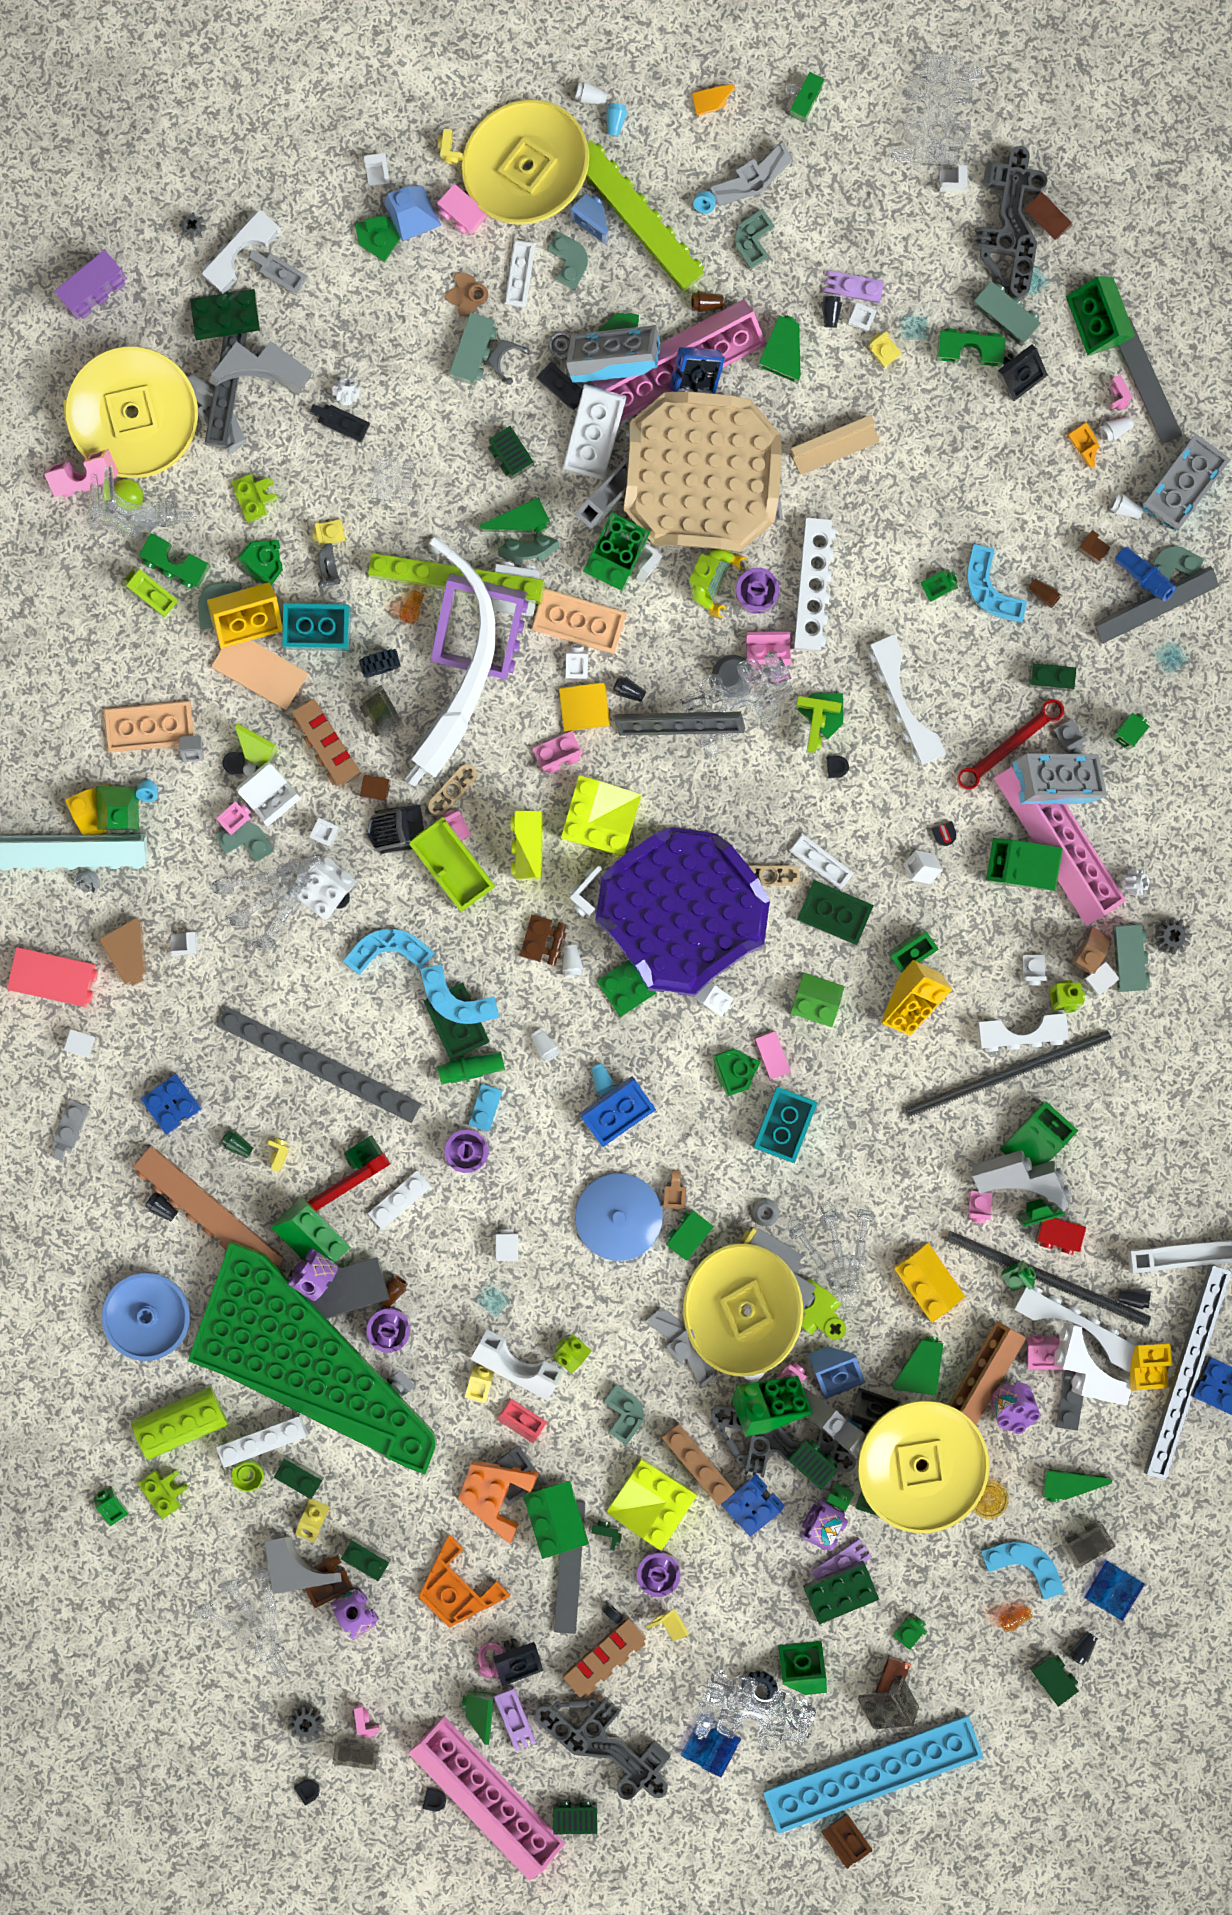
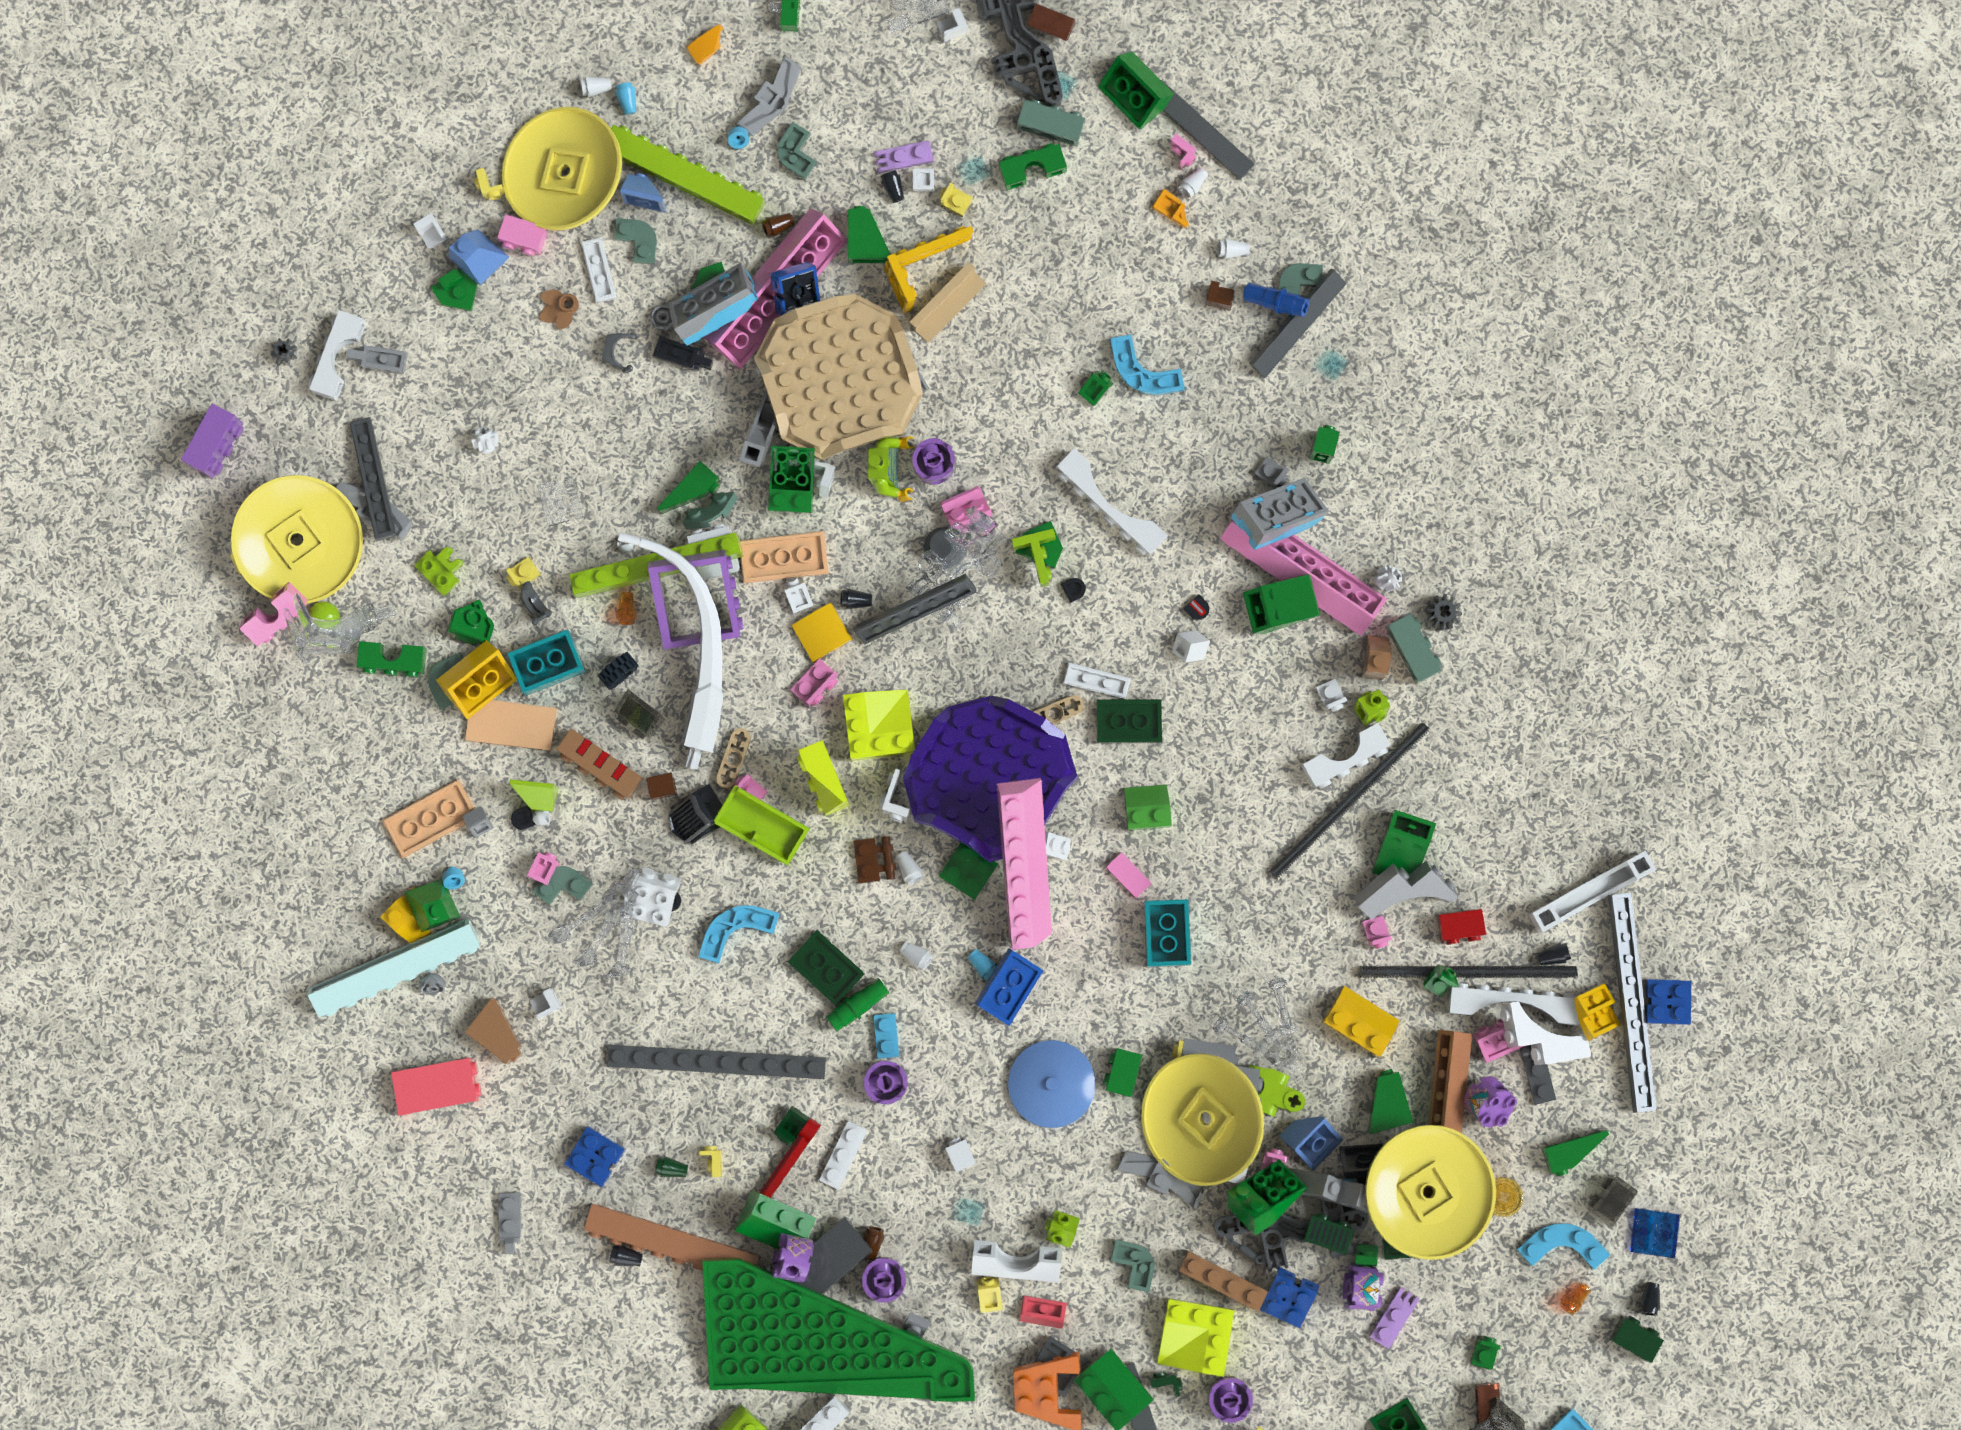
camera: 25 degrees left, 5 degrees down
(79, 1043) = (486, 1136): white panel -> none
(146, 1316) = (653, 1365): medium blue dish -> none
(149, 591) = (380, 694): lime bracket -> none
(225, 314) = (346, 417): dark green plate -> none
(267, 363) = (403, 444): light grey arch -> none
(268, 793) = (565, 832): white bracket -> none
(324, 832) = (632, 846): white panel -> none
(341, 422) = (492, 469): black hinge -> none
(449, 1006) = (817, 956): medium azure plate -> none
(473, 349) = (585, 354): sand green brick -> none
(510, 452) = (658, 432): dark green brick -> none
(594, 432) = (725, 381): white tile -> none
(675, 1194) = (1094, 1040): medium nougat plate -> none
(680, 1004) = (1024, 862): none -> bright pink slope
(734, 1071) = (1100, 904): green plate -> none
(758, 1212) = (1184, 1029): light grey plate -> none
(802, 386) = (896, 263): none -> yellow bracket
(824, 529) = (970, 382): white brick -> none
(841, 1592) = (1405, 1344): dark green plate -> none
(914, 948) = (1214, 725): green brick -> none
(915, 997) = (1235, 766): yellow slope -> none
(1010, 744) = (1222, 502): red piece -> none
(1022, 372) = (1087, 168): black tile -> none
(1038, 1212) = (1432, 913): green piece -> none
(1045, 593) = (1193, 354): reddish brown cone -> none
(1052, 677) = (1233, 426): dark green brick -> none
(1101, 979) = (1396, 678): white panel -> none
(1185, 483) = (1276, 204): light grey piece -> none

